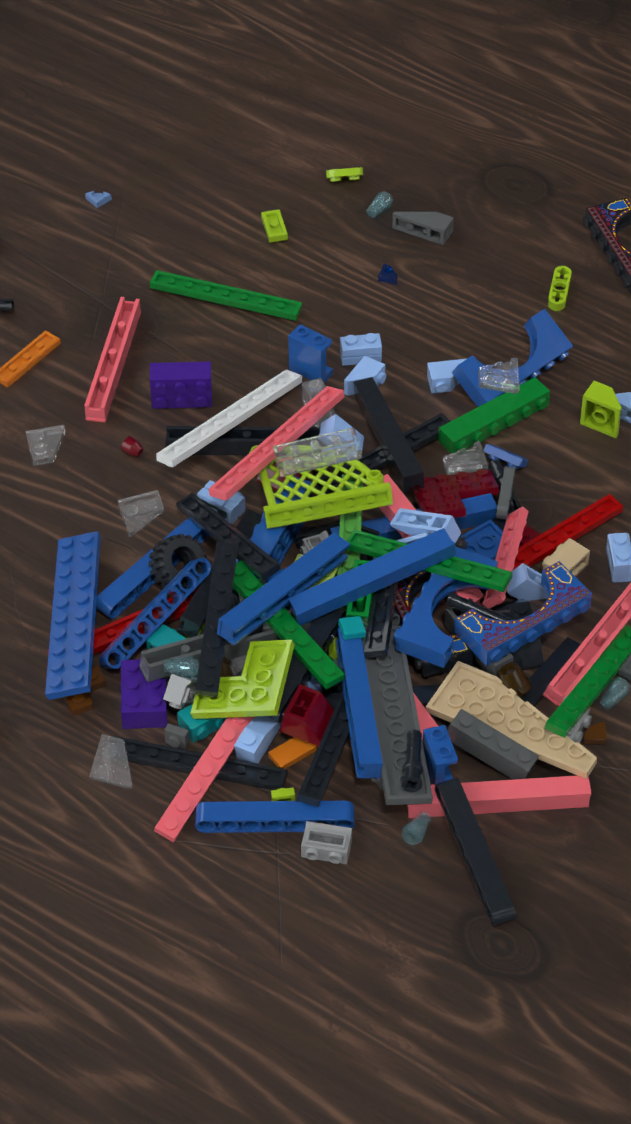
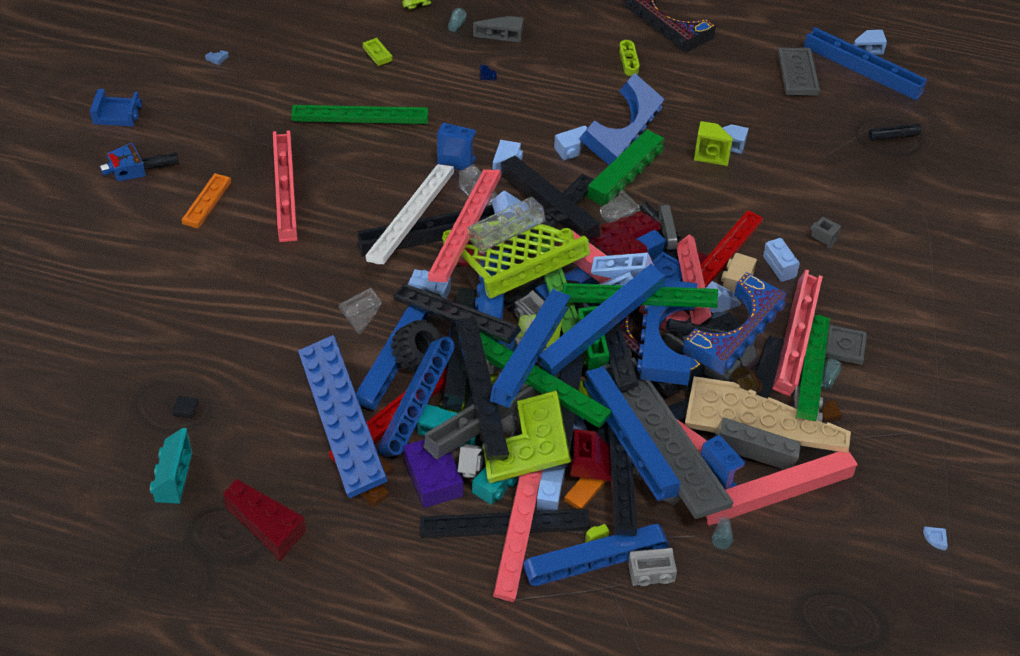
camera: 20 degrees left, 0 degrees up
(44, 443) = (251, 270): clear wing -> none
(111, 763) = (429, 542): clear wing -> none
(132, 447) = (331, 256): dark red hose -> none
(176, 736) = (478, 503): dark grey plate -> none
(181, 385) = (355, 194): dark purple brick -> none
(182, 666) = (467, 438): clear light blue cone -> none
(352, 627) = (599, 368): teal tile -> none
(356, 347) = (489, 135): light blue brick -> none
(412, 767) = (707, 479): black pin -> none
(475, 852) = (787, 541): black beam -> none
(500, 376) = (622, 133): clear wing -> none
(512, 459) = (642, 197): blue plate -> none

